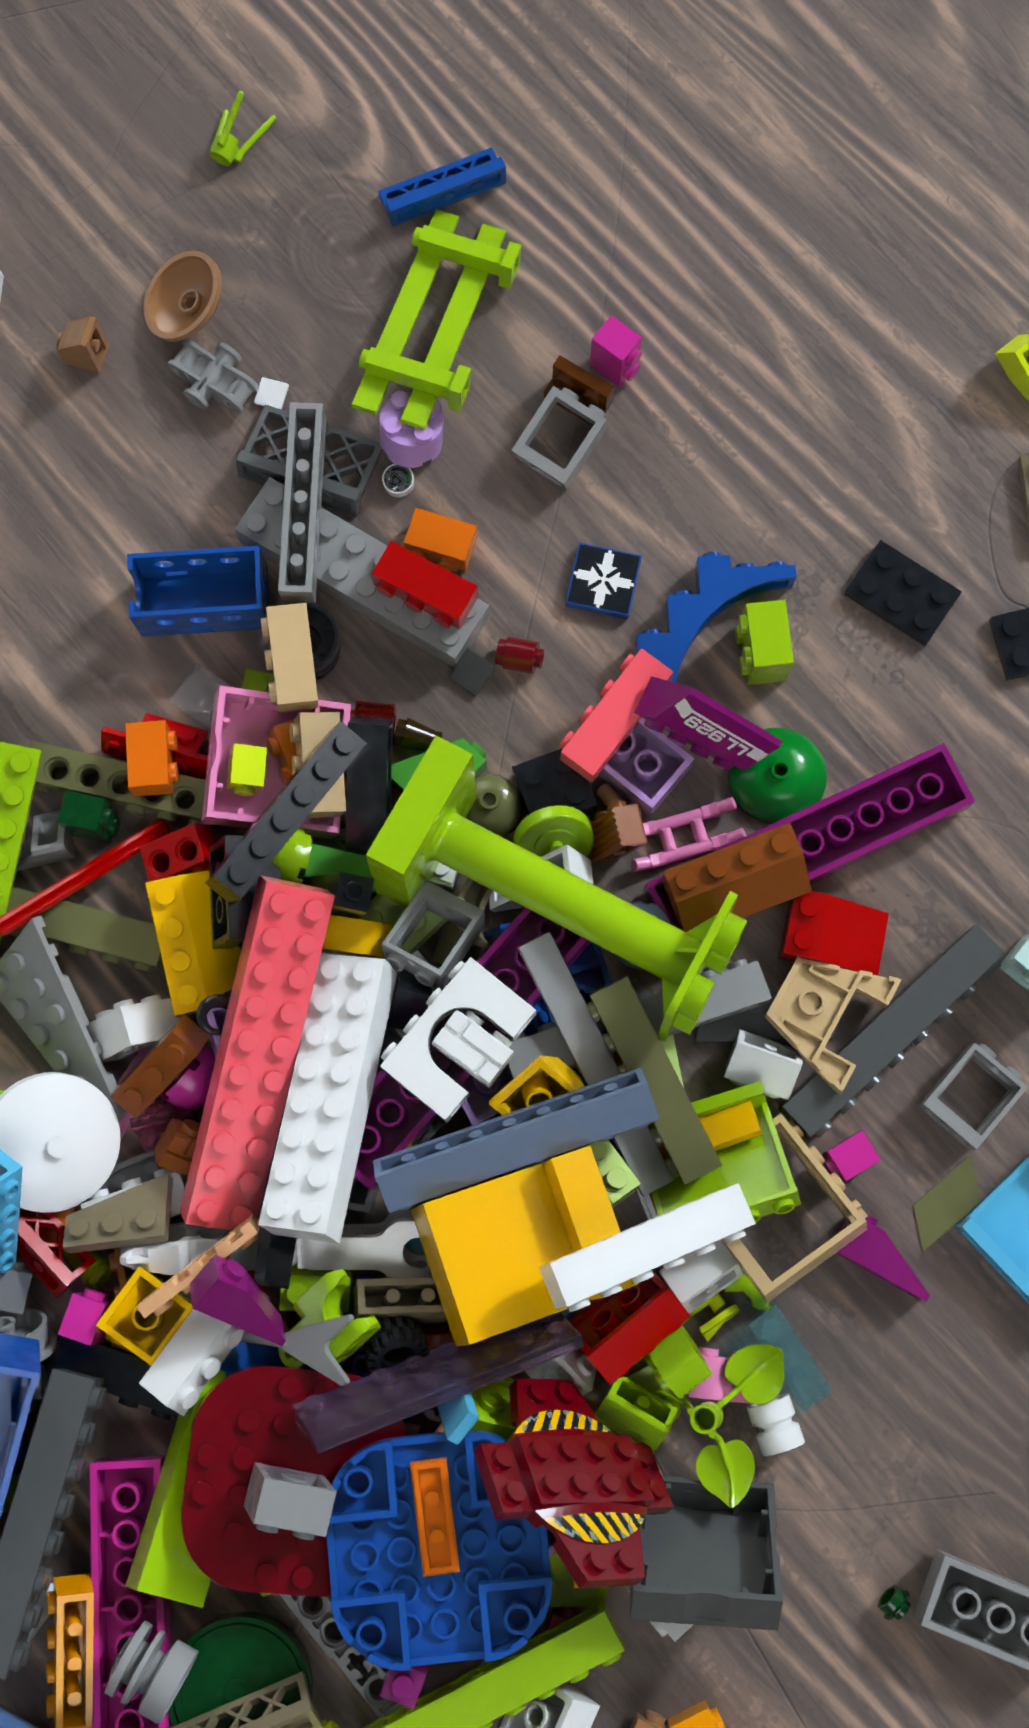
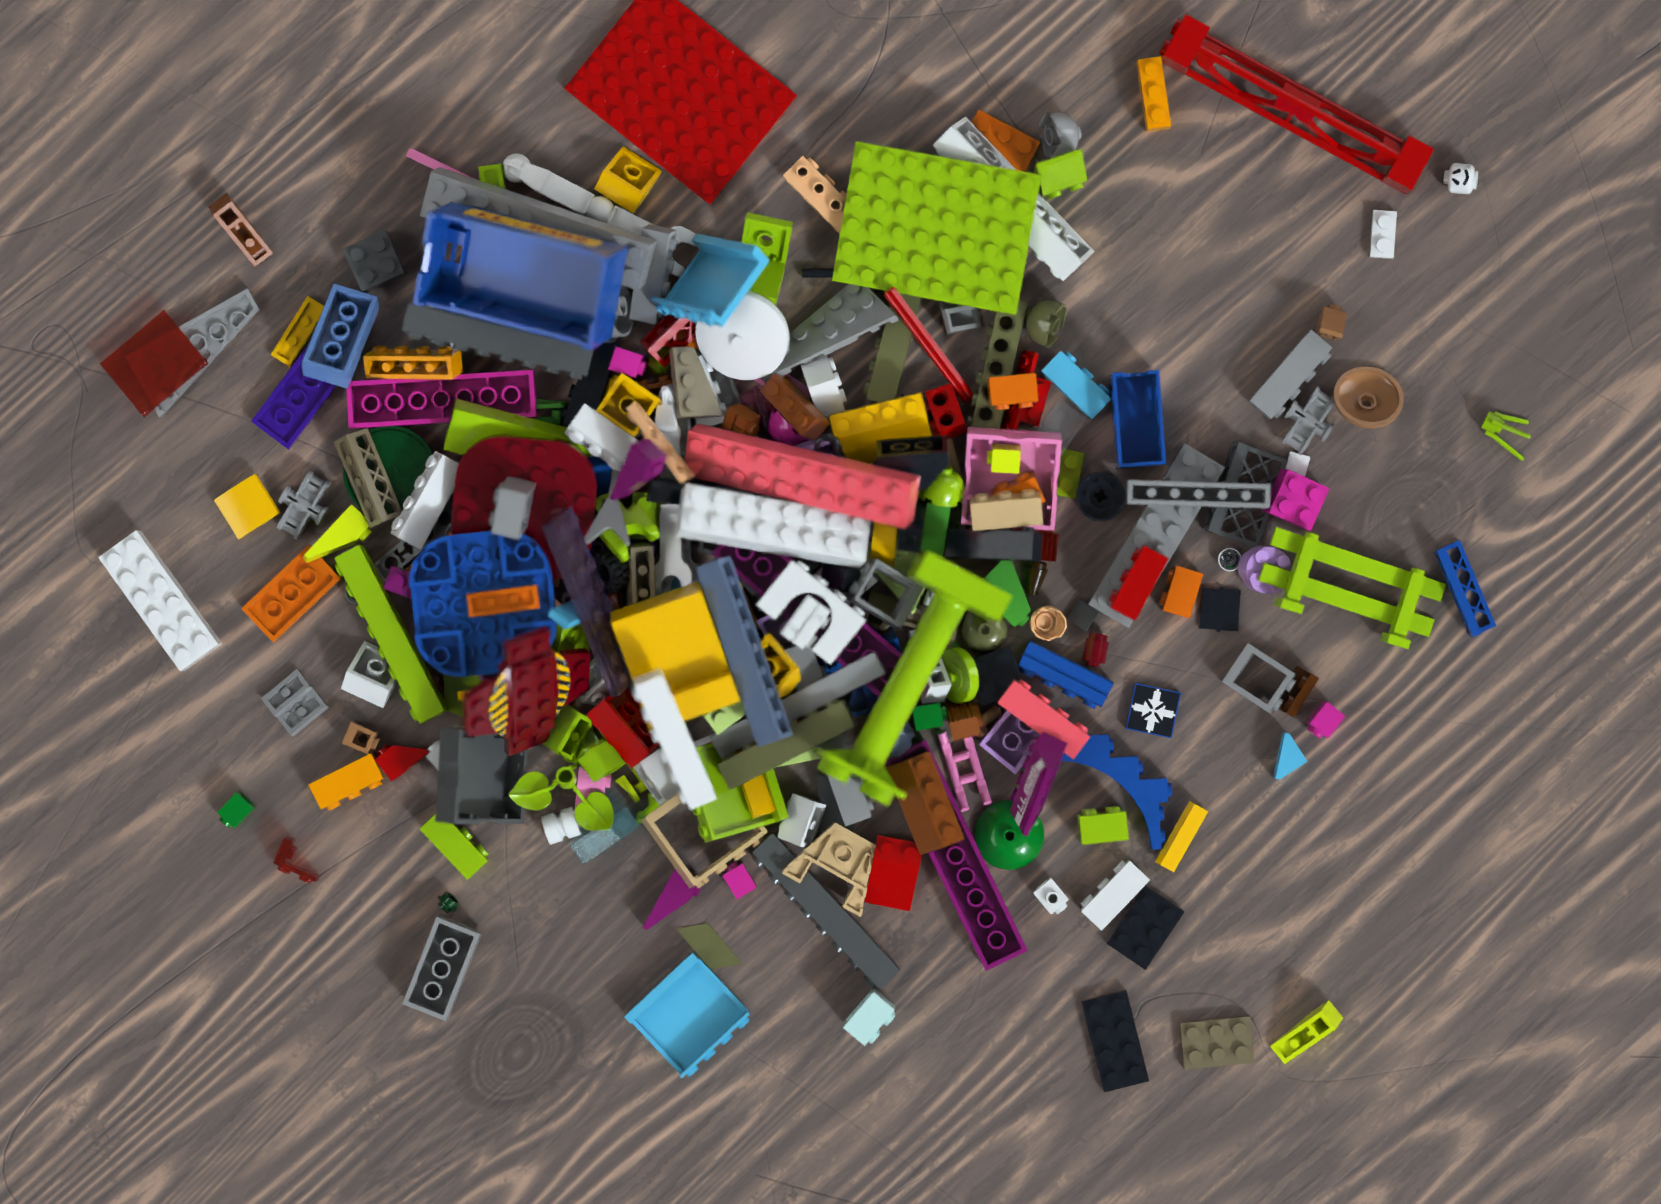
camera: 90 degrees right, 10 degrees up
(59, 718) = (1044, 321): none -> olive cylinder
(88, 817) = (971, 347): dark green brick -> none
(148, 396) = (1290, 374): none -> light grey brick
(151, 677) = (1076, 384): none -> medium azure brick
(151, 1672) = (404, 419): light grey wheel -> none
(162, 1426) = (556, 413): none -> bright green piece
(283, 1635) = (426, 501): none -> white brick
(285, 813) = (964, 493): black brick -> none
(290, 657) = (1082, 489): tan brick -> none
(318, 379) = (1296, 499): none -> dark pink brick
(466, 493) = (1219, 609): none -> black piece
(481, 717) = (1048, 623): none -> light nougat hair
(553, 694) = (1065, 674): none -> blue brick
(613, 875) = (929, 716): none -> green brick
(666, 403) = (1288, 757): none -> medium azure slope
(678, 1681) = (399, 759): none -> red slope
(776, 542) = (1181, 836): none -> yellow tile
(812, 1588) = (456, 846): none -> lime brick
(858, 631) = (1114, 894): none -> white brick
(863, 716) = (1051, 896): none -> white brick
(952, 1123) = (762, 950): light grey window -> none

